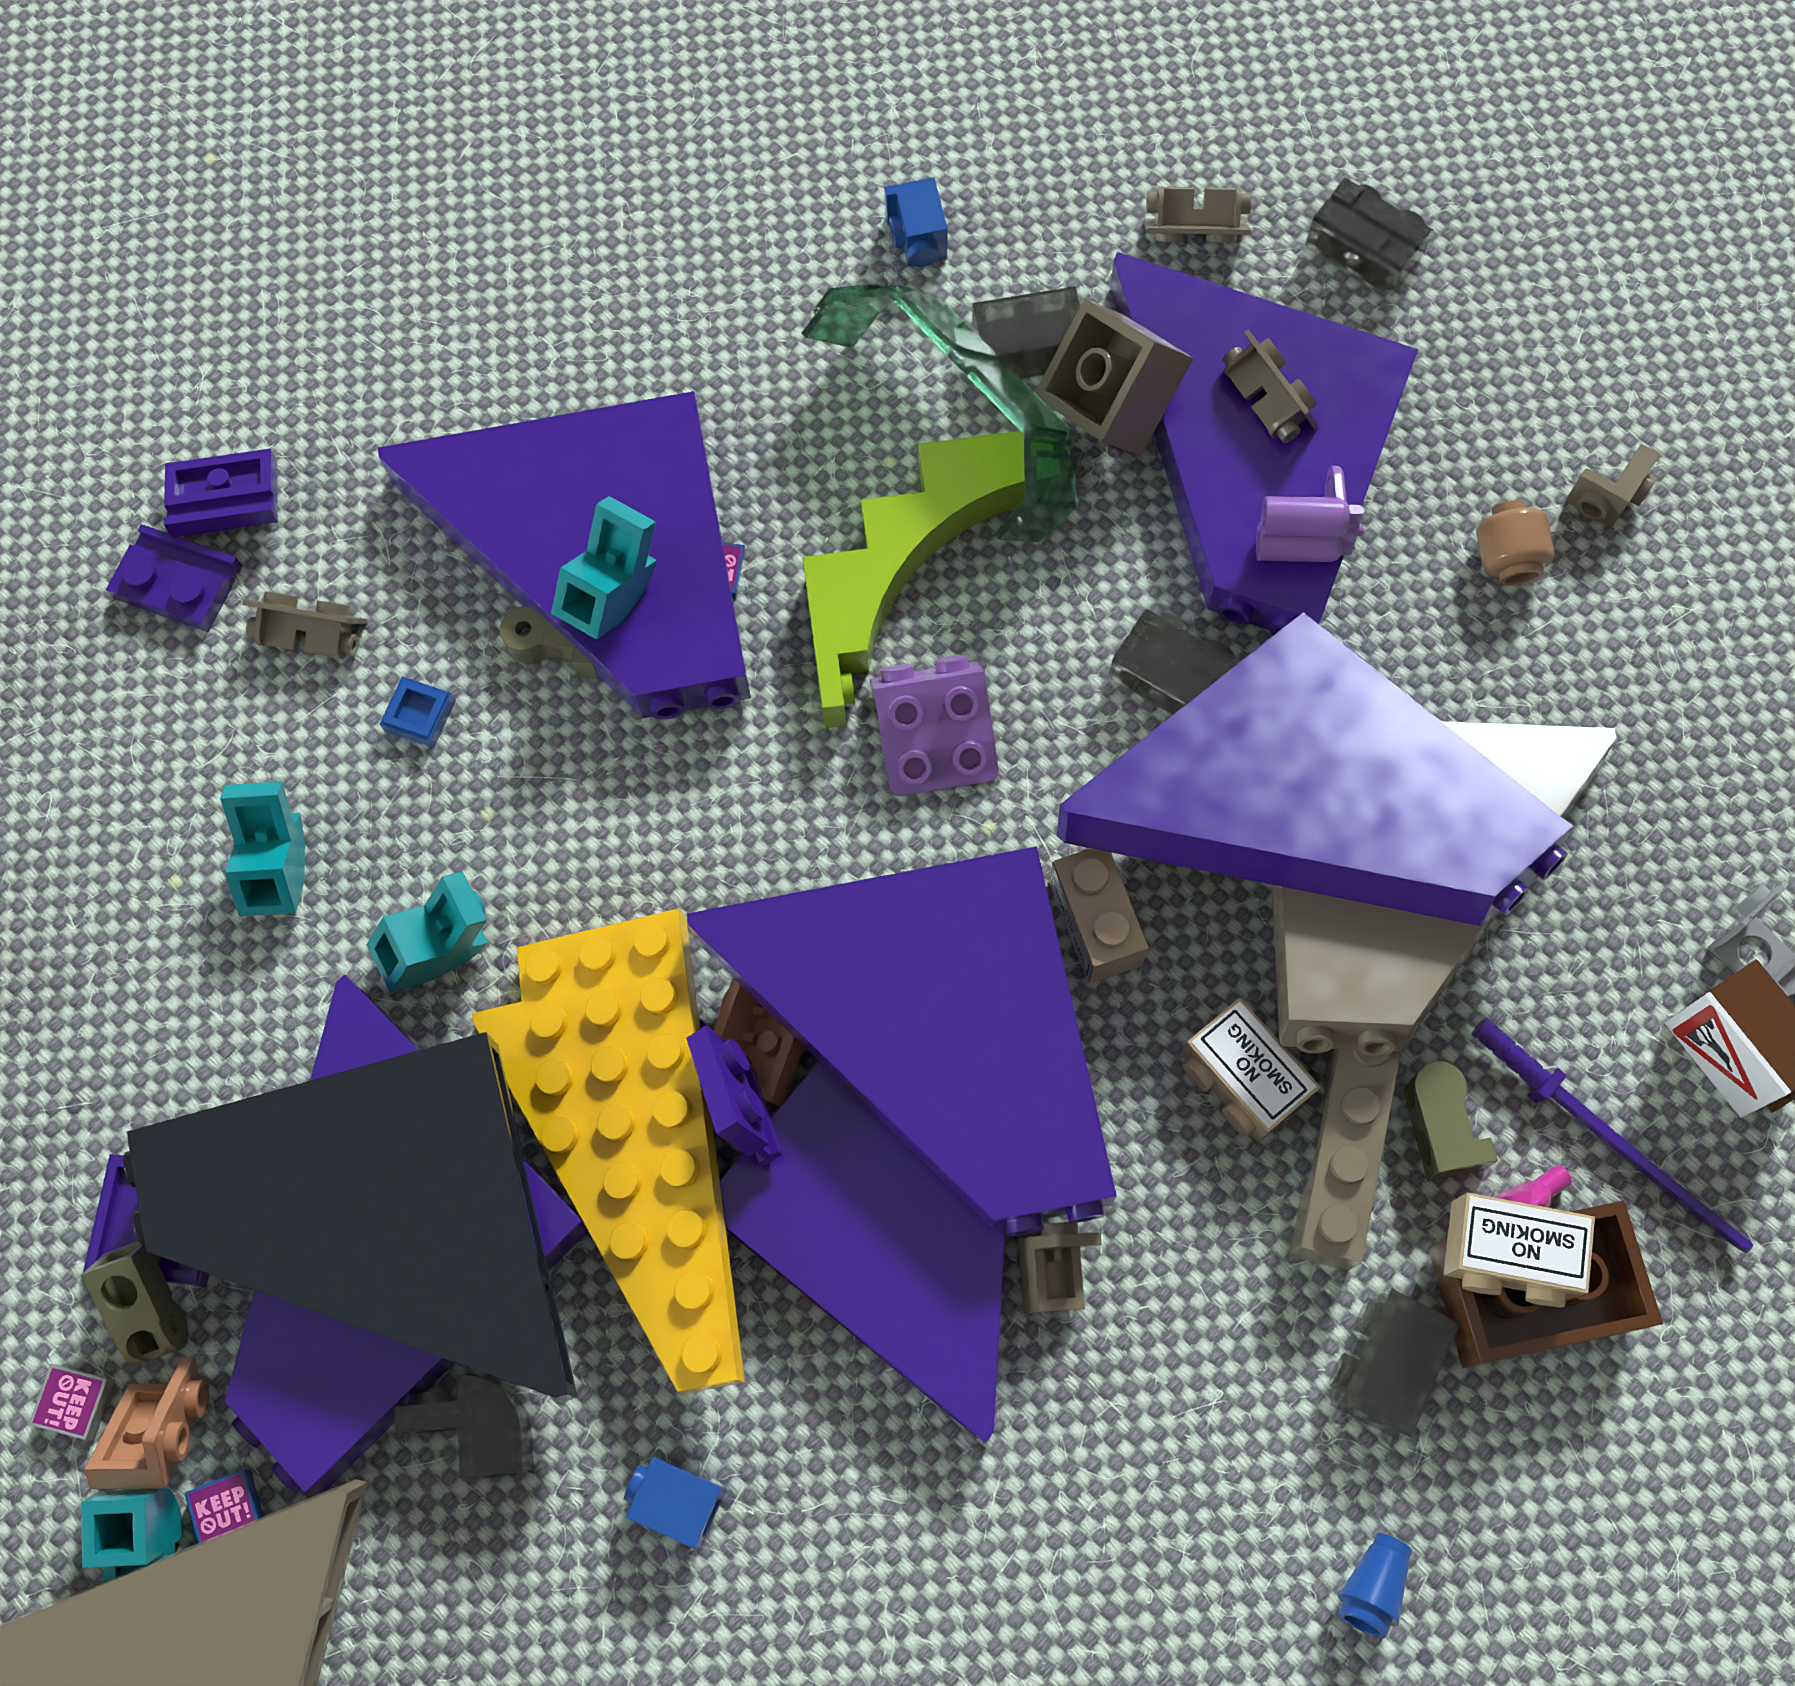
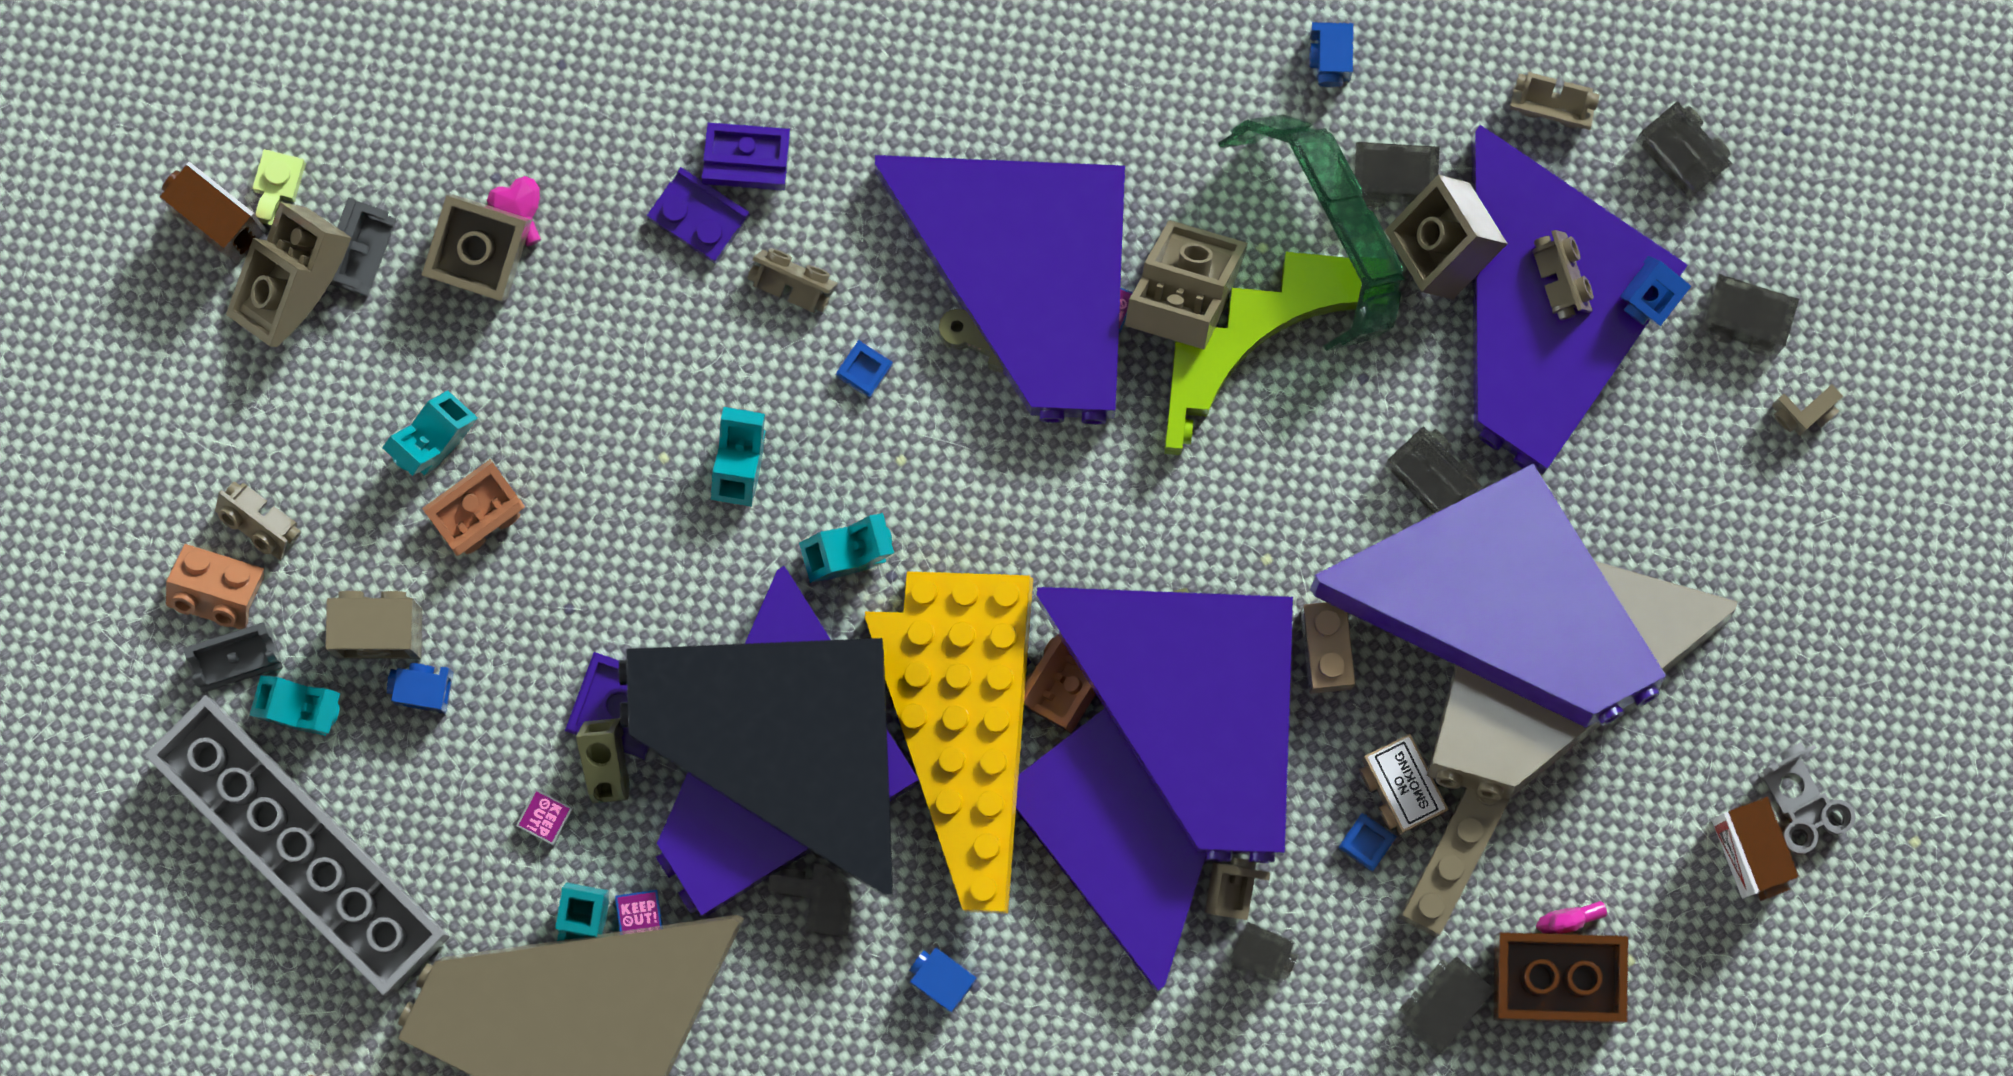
camera: 10 degrees right, 10 degrees up
(149, 1432) = (603, 850): nougat bracket -> none
(611, 575) = (1031, 312): teal brick -> none
(734, 1095) = (1042, 720): dark purple plate -> none
(800, 513) = (1185, 284): none -> dark tan slope
(935, 726) = (1245, 474): medium lavender bracket -> none
(1122, 1352) = (1263, 954): none -> clear smoke brick
(1219, 1162) = (1367, 842): none -> blue tile
(1309, 526) = (1557, 399): medium lavender piece -> none
(1403, 369) = (1668, 292): none -> blue brick
(1442, 1124) = (1528, 854): olive leg -> none
(1507, 396) = (1748, 315): none -> clear smoke brick
(1515, 543) = (1716, 436): medium nougat head -> none
(1519, 1248) = (1542, 950): brick -> none
(1547, 1084) = (1611, 843): dark purple sword -> none

